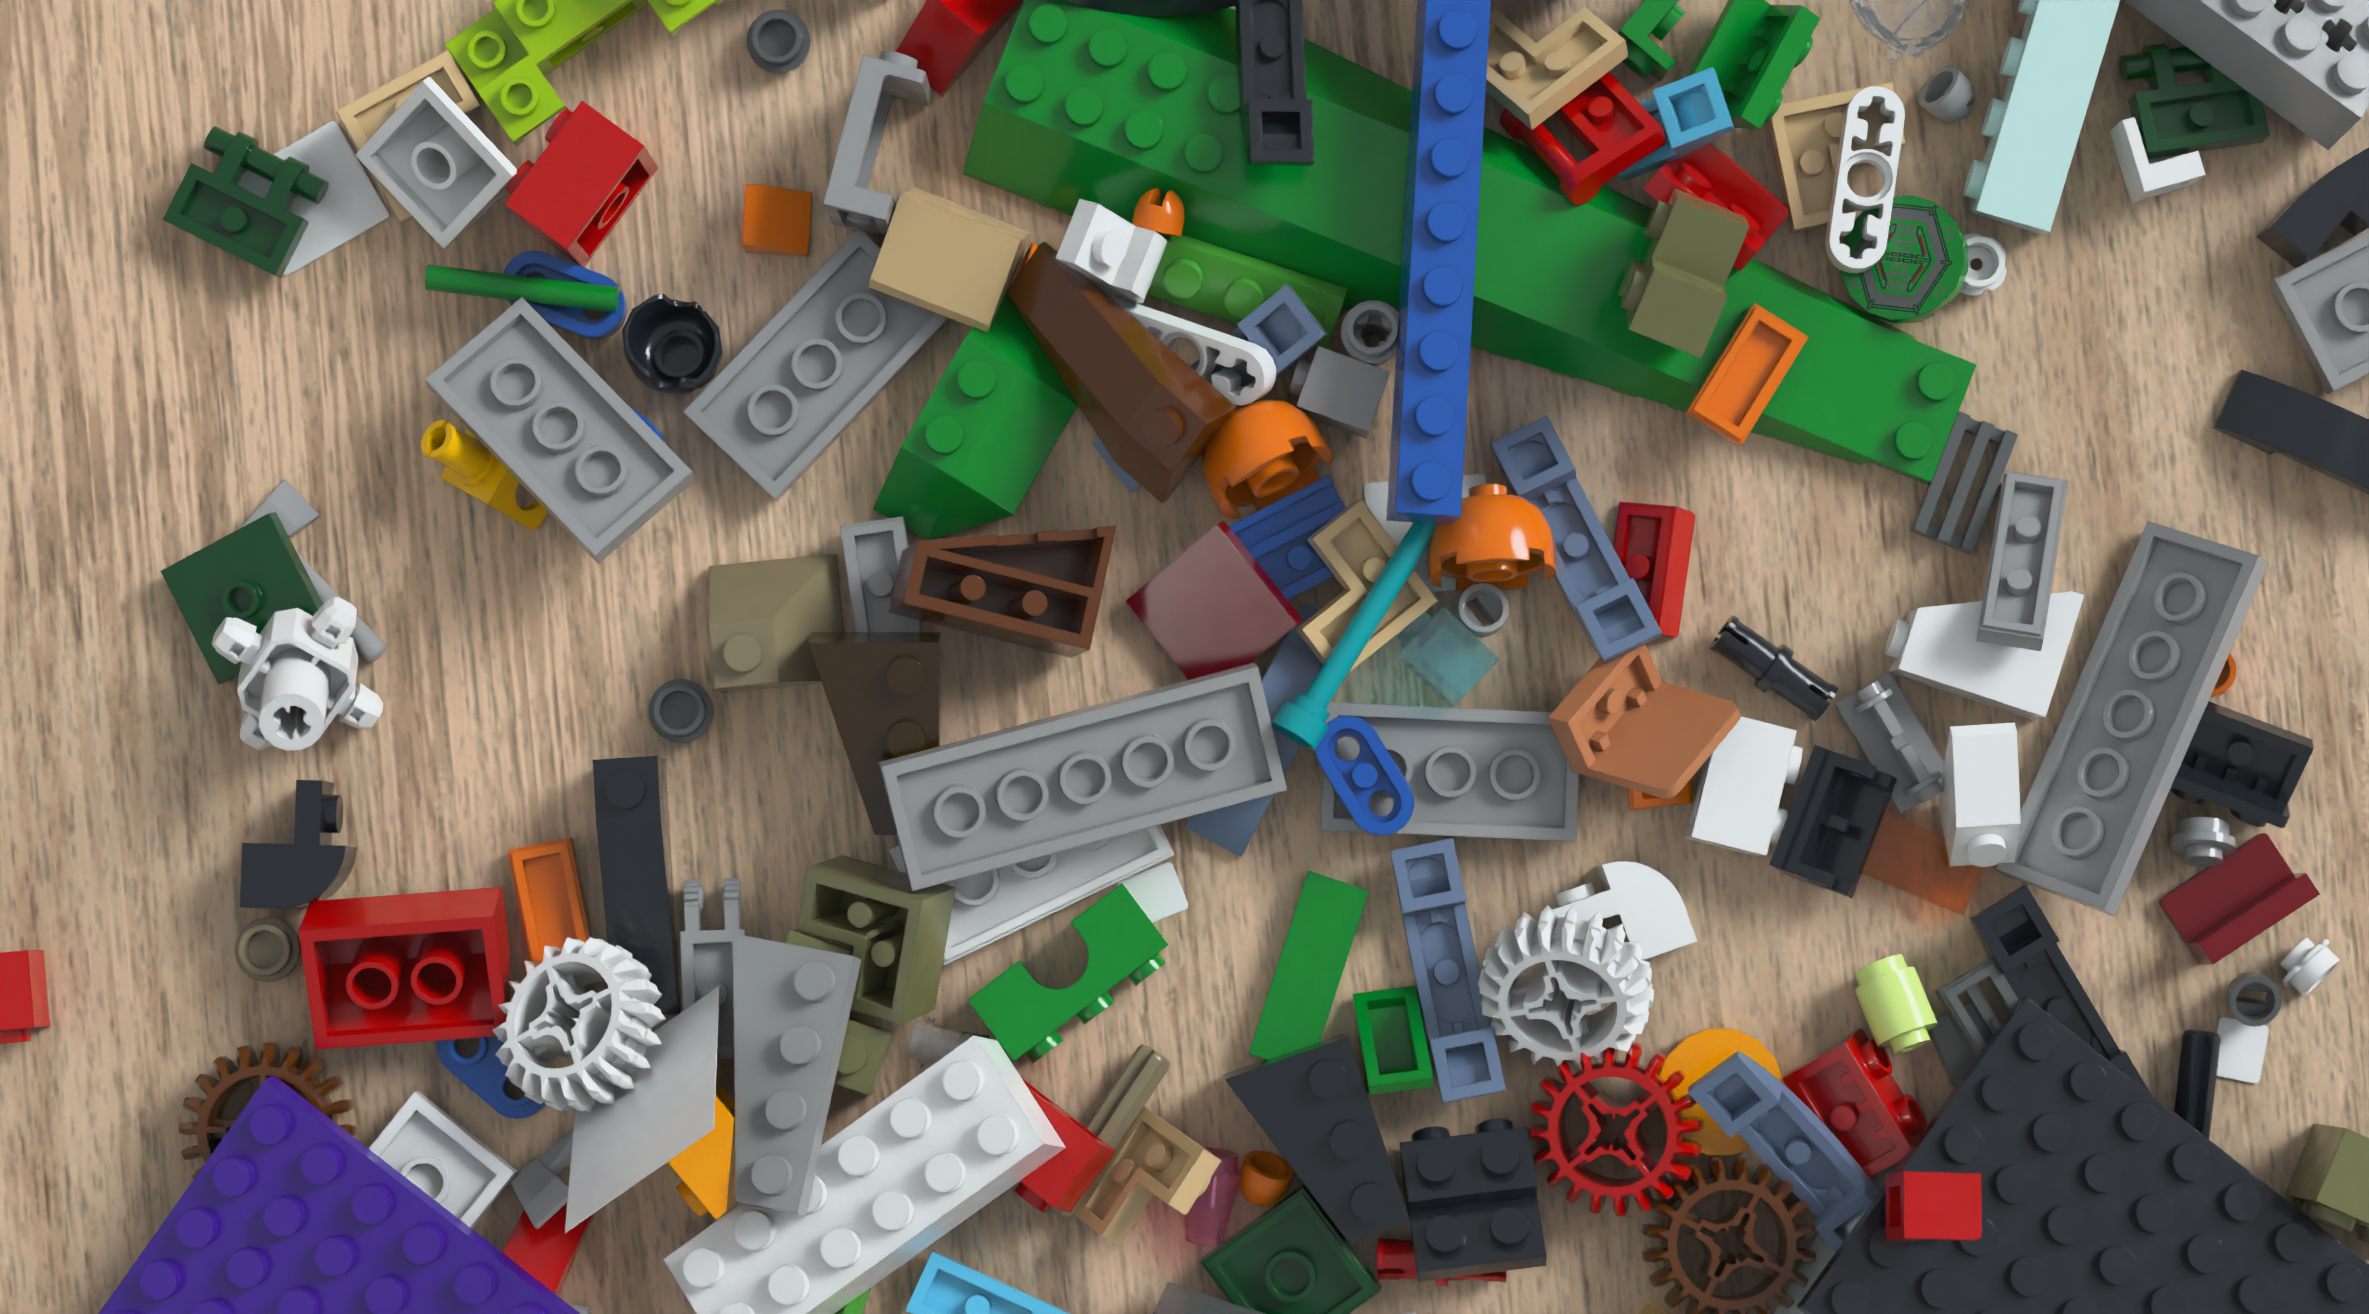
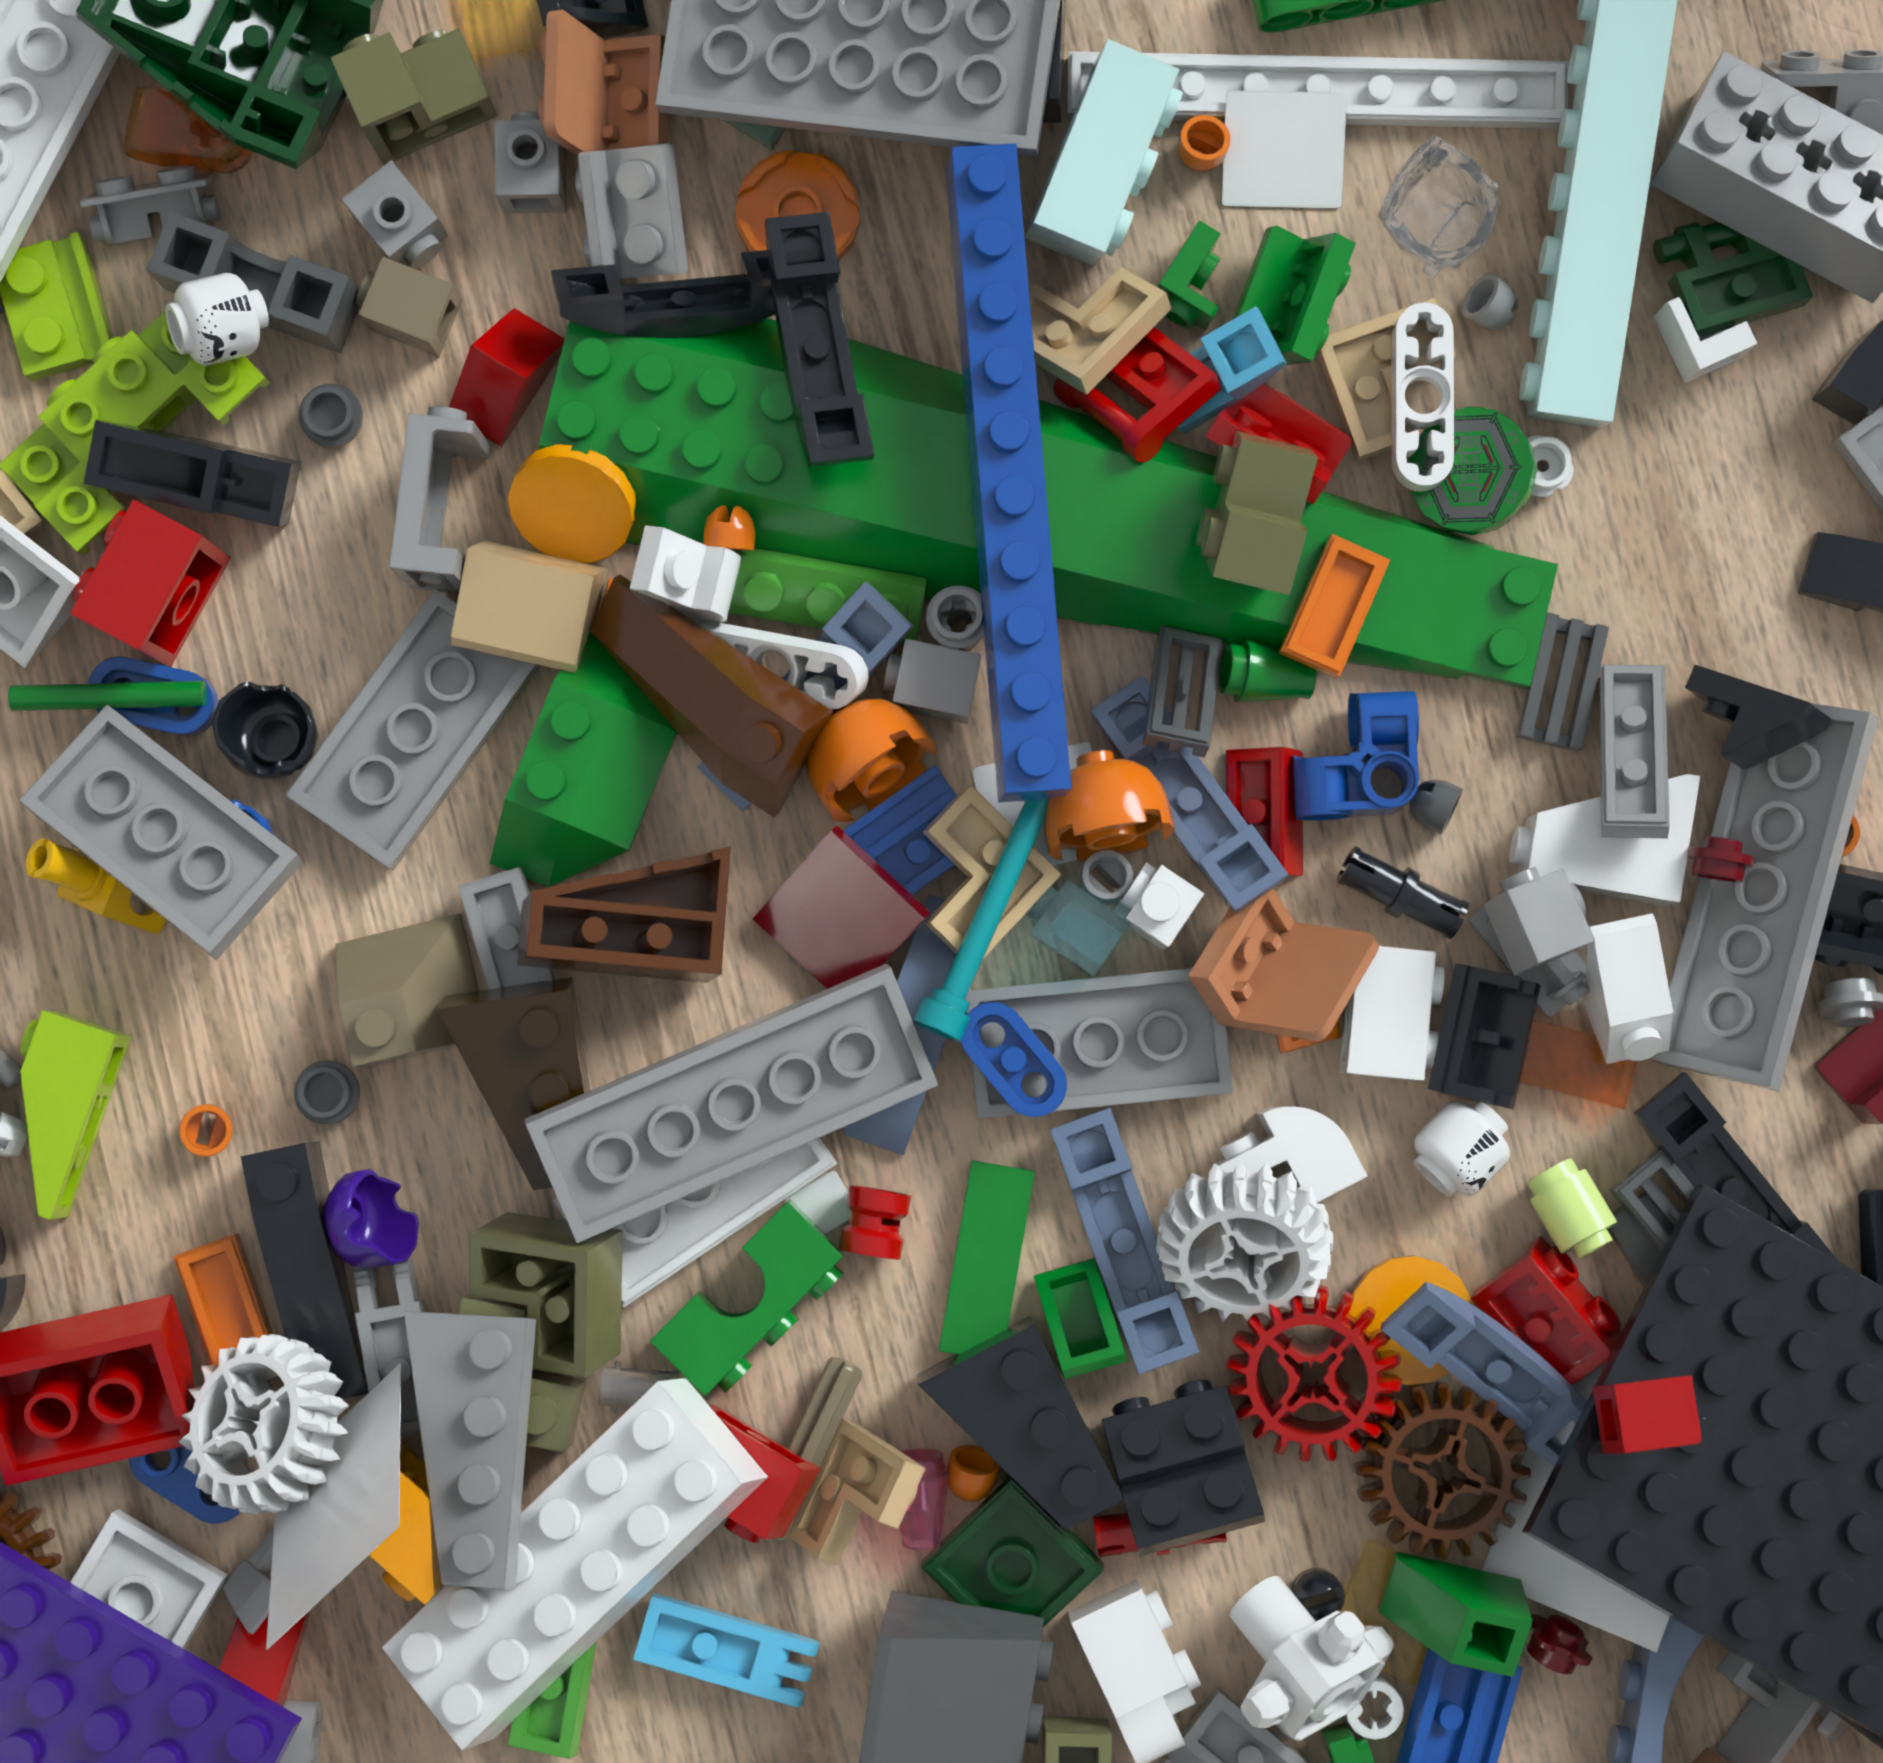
camera: 10 degrees left, 0 degrees up
(426, 672) = (65, 1094): none -> lime slope
(569, 736) = (219, 1135): none -> orange hinge
(636, 80) = (192, 473): none -> black slope
(704, 845) = (367, 1223): none -> dark purple hair
(776, 220) = (353, 592): orange slope -> none
(1007, 164) = (572, 503): none -> light orange tile
(1204, 917) = (874, 1222): none -> red wheel
(1529, 644) = (1158, 904): none -> white brick
(1571, 478) = (1175, 733): none -> dark grey tile
(1665, 431) = (1263, 674): none -> green cone
(1774, 510) = (1381, 735): none -> blue piece
(1794, 929) = (1461, 1148): none -> white head
(1819, 585) = (1435, 804): none -> dark grey hinge
(1901, 711) = (1538, 918): none -> light grey brick
(2091, 680) = (1720, 859): none -> dark red plate
(2153, 548) = (1761, 718): none -> black slope

